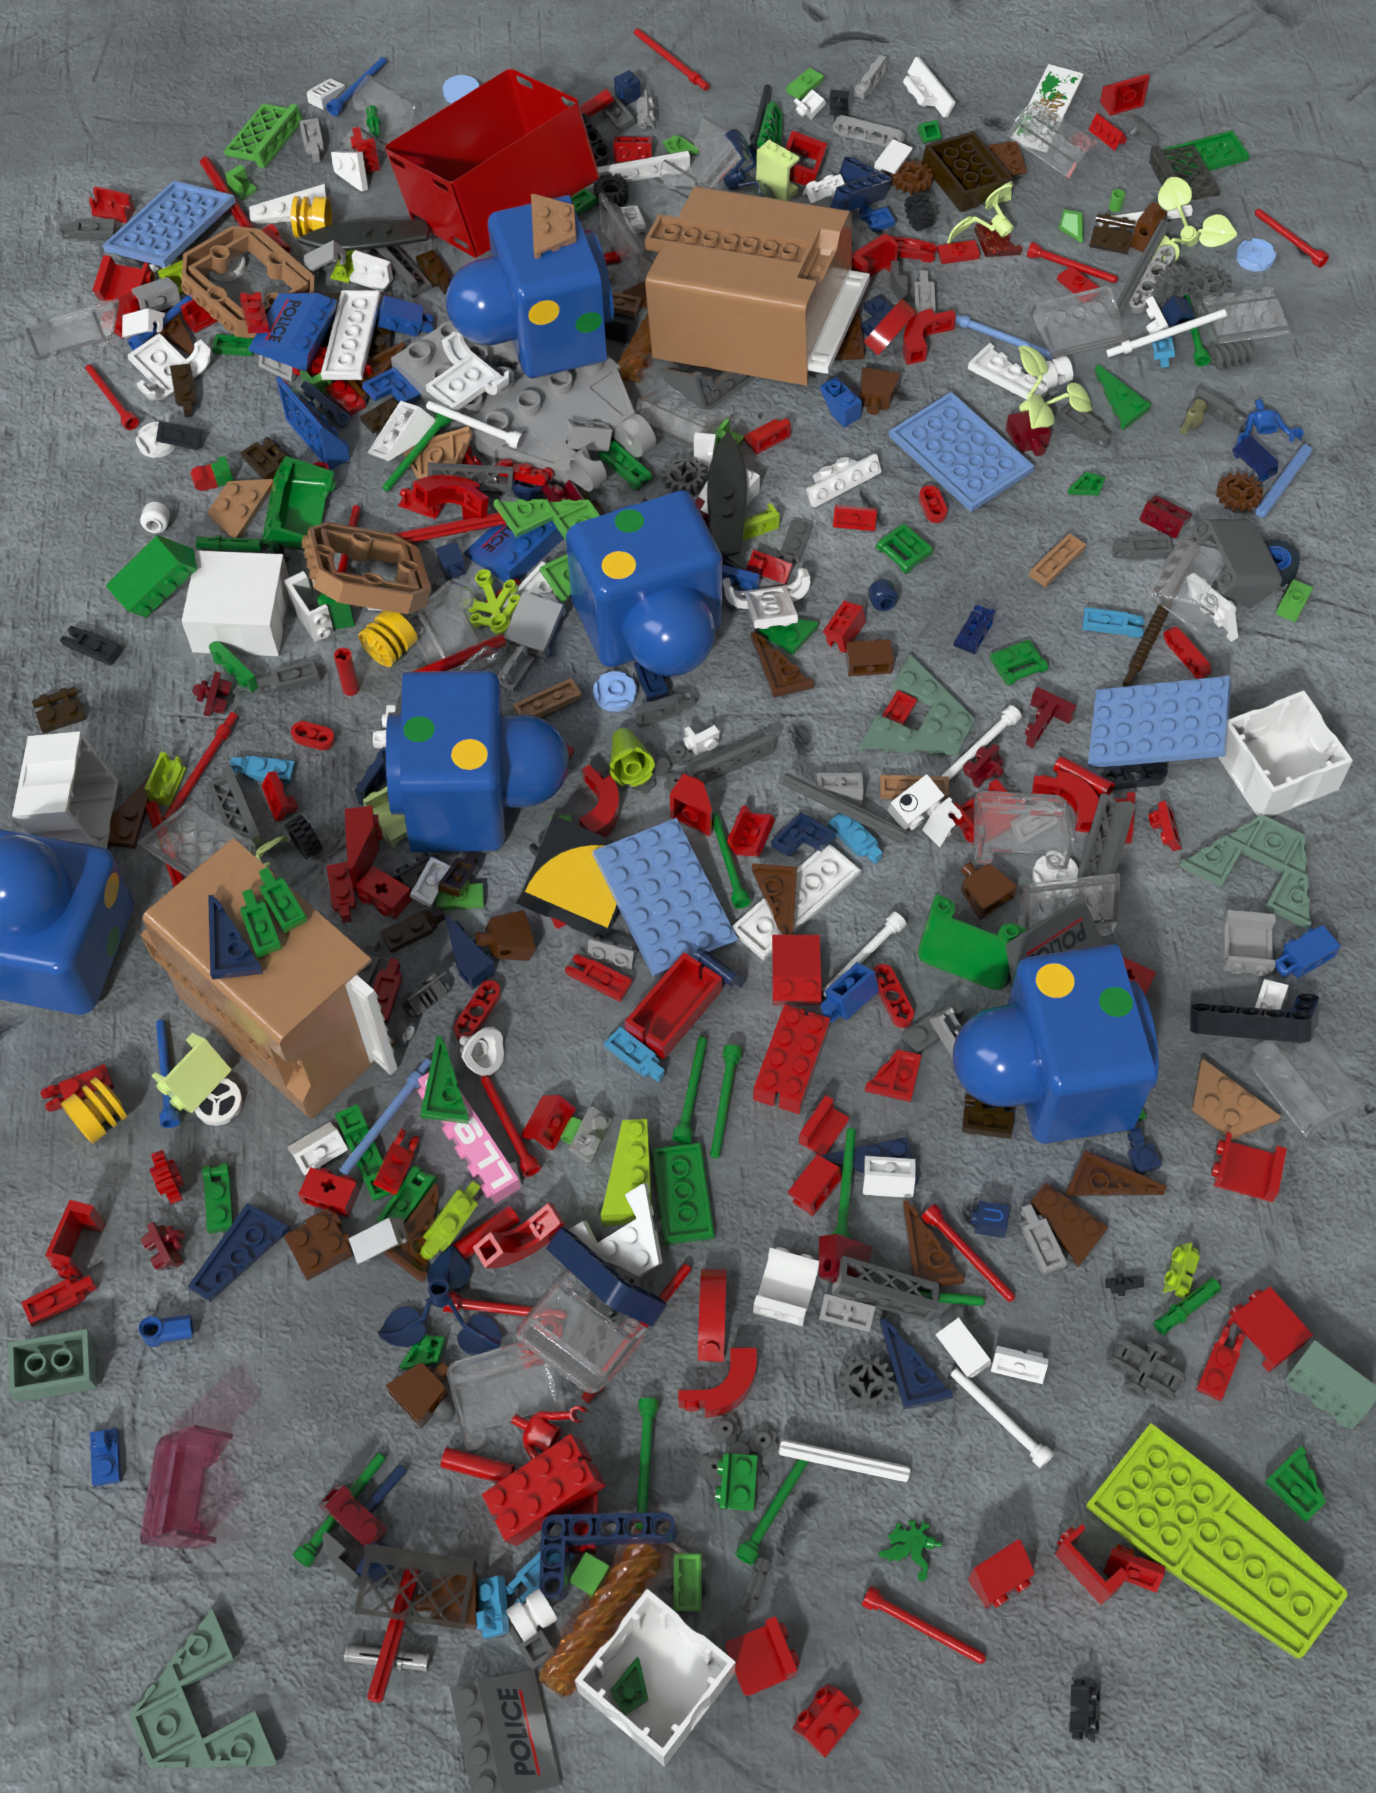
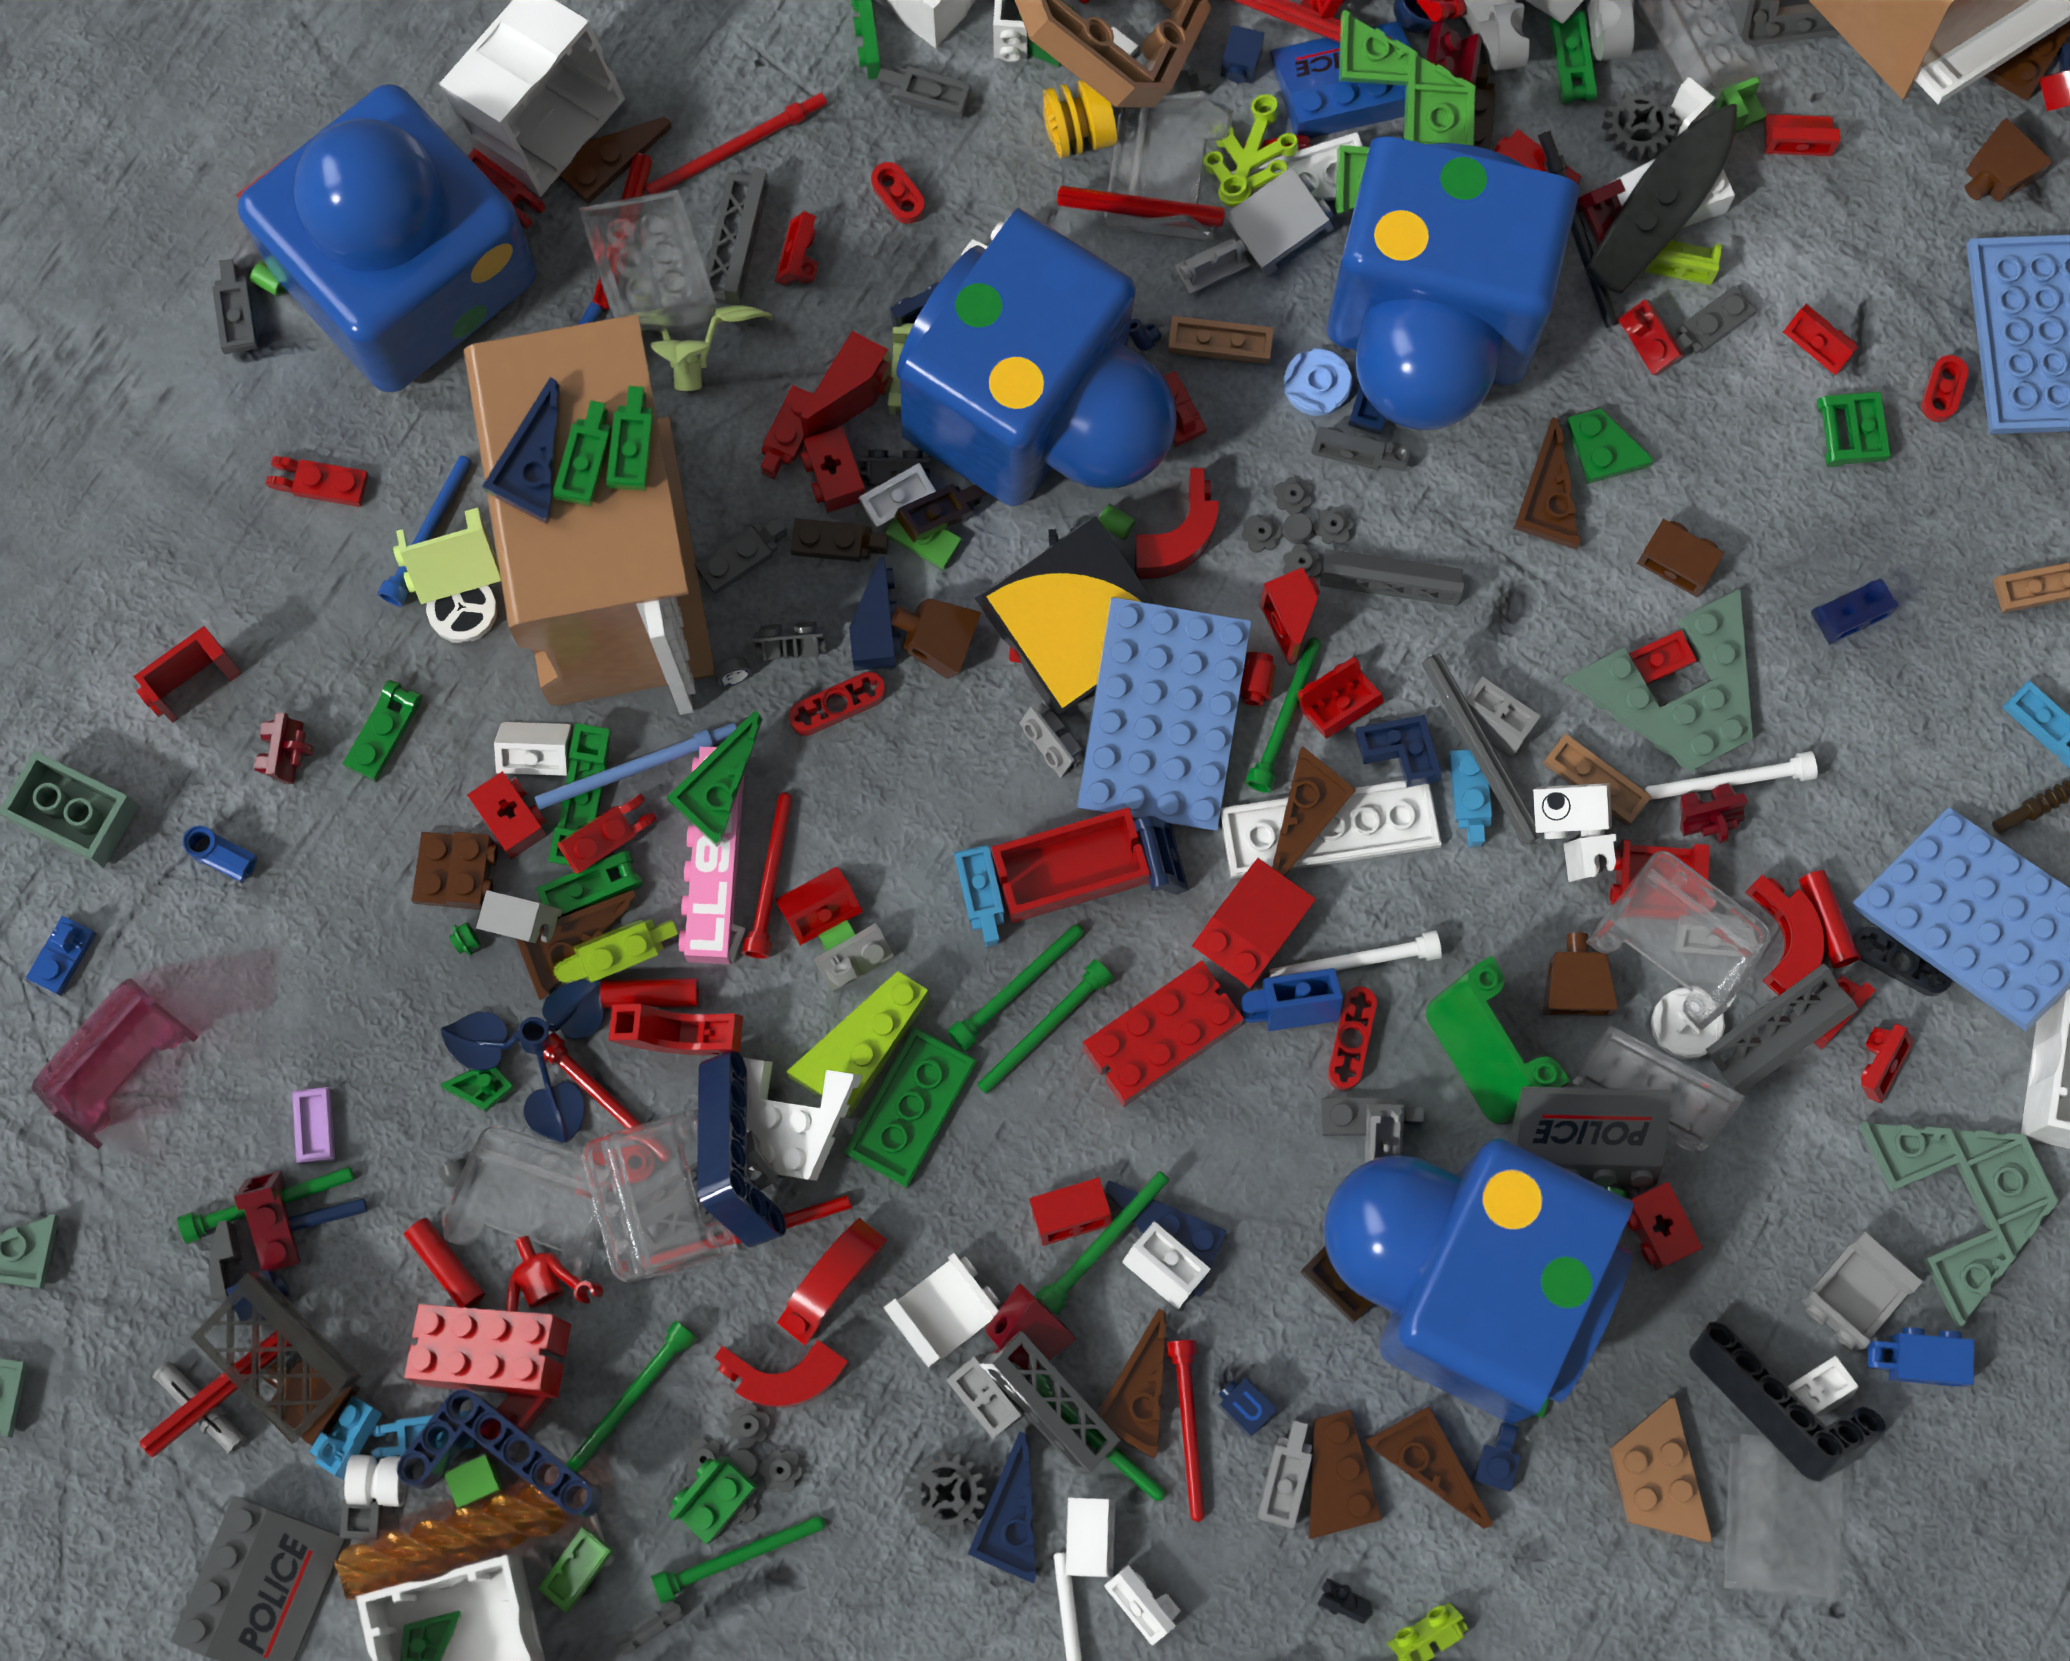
camera: 35 degrees right, 15 degrees up
(57, 1299) = (127, 730): red hinge -> none
(94, 1110) = (302, 527): yellow wheel -> none
(165, 779) = (680, 135): lime hinge -> none
(166, 1176) = (335, 668): red gear -> none
(217, 686) = (807, 65): dark red hips -> none
(238, 1249) = (363, 812): dark blue wing -> none
(257, 768) = (807, 195): dark azure hinge -> none
(303, 837) = (787, 330): black tyre -> none
(338, 1445) = (313, 1125): none -> lavender tile
(346, 671) = (992, 134): red piece -> none
(353, 1277) = (464, 939): none -> green plate
(387, 987) = (745, 603): red hinge -> none
(419, 1391) = (441, 1131): reddish brown torso -> none
(483, 1051) = (802, 764): white helmet -> none
(599, 977) = (1013, 765): red hinge -> none
(629, 759) = (1260, 492): lime cone -> none
(701, 849) = (1257, 678): none -> red brick
(702, 741) = (1378, 532): white bracket -> none
(745, 579) = (1584, 316): blue hinge -> none
(770, 605) = (1607, 390): white piece -> none
(823, 1127) = (1137, 1147): red panel -> none
(841, 402) = (1938, 150): blue slope -> none
(841, 477) = (1849, 266): white bracket -> none
(844, 1460) = (852, 1564): white axle -> none
(845, 625) = (1684, 489): red hinge -> none
(883, 595) = (1769, 479): dark blue head -> none
(896, 1077) = (1274, 1146): red wing -> none
(1017, 657) = (1878, 687): green plate -> none
(1049, 707) = (1864, 789): dark red bracket -> none
(1248, 1169) = (1615, 1575): red panel -> none

